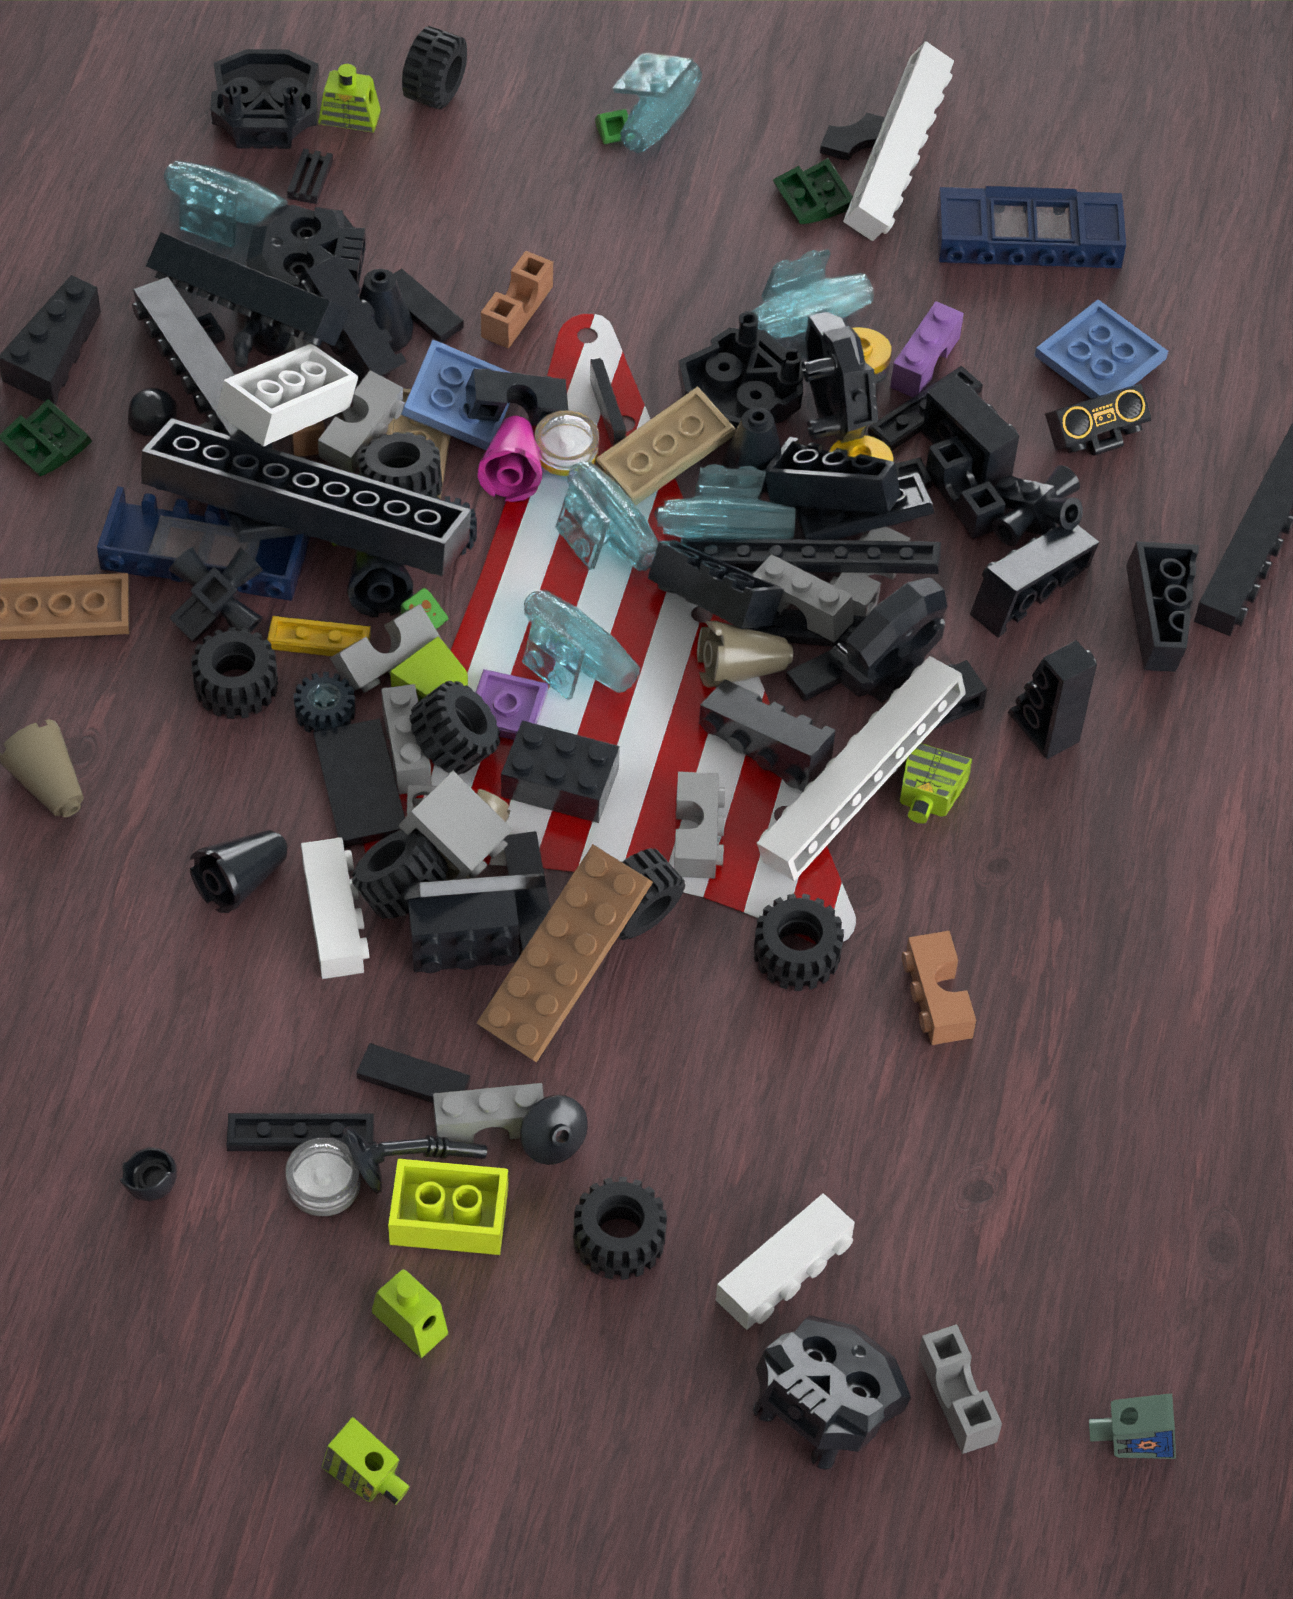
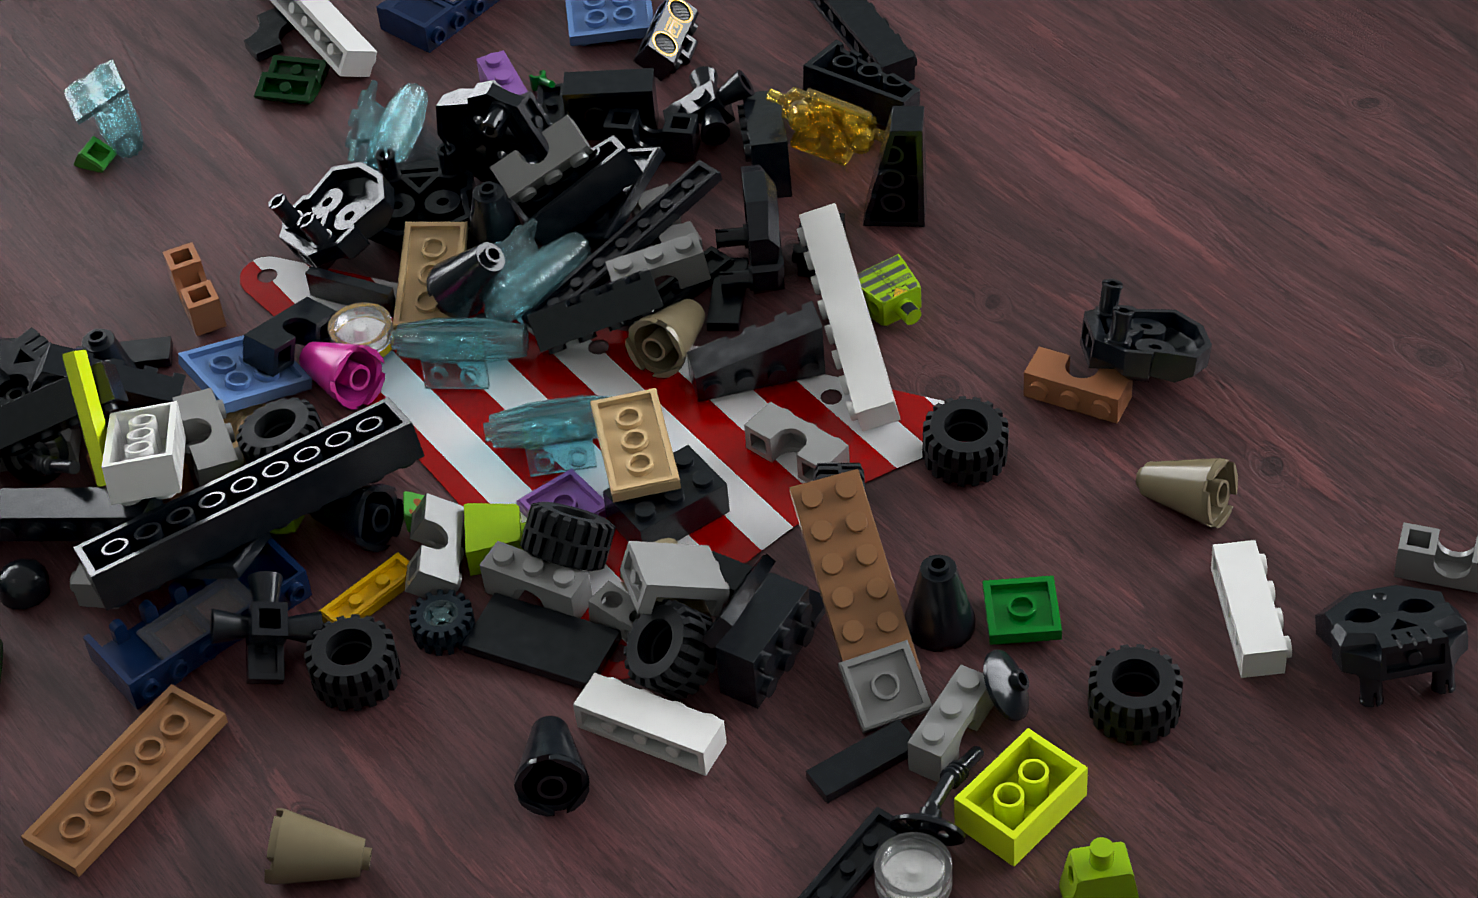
camera: 45 degrees left, 10 degrees down
(292, 317) = (88, 408): none -> neon yellow tile
(490, 1044) = (885, 686): none -> light grey tile
(581, 709) = (635, 445): none -> tan tile
(600, 1035) = (939, 606): none -> black cone
(652, 1095) = (1021, 610): none -> green plate
(662, 472) = (465, 280): none -> black cone
(664, 334) = (336, 215): none -> black brick
(848, 436) = (566, 150): none -> light grey arch
(883, 1145) = (1191, 487): none -> dark tan cone
(968, 365) = (540, 80): none -> green hand
(1020, 1005) = (1142, 340): none -> black brick
(1082, 607) = (826, 124): none -> clear yellow piece

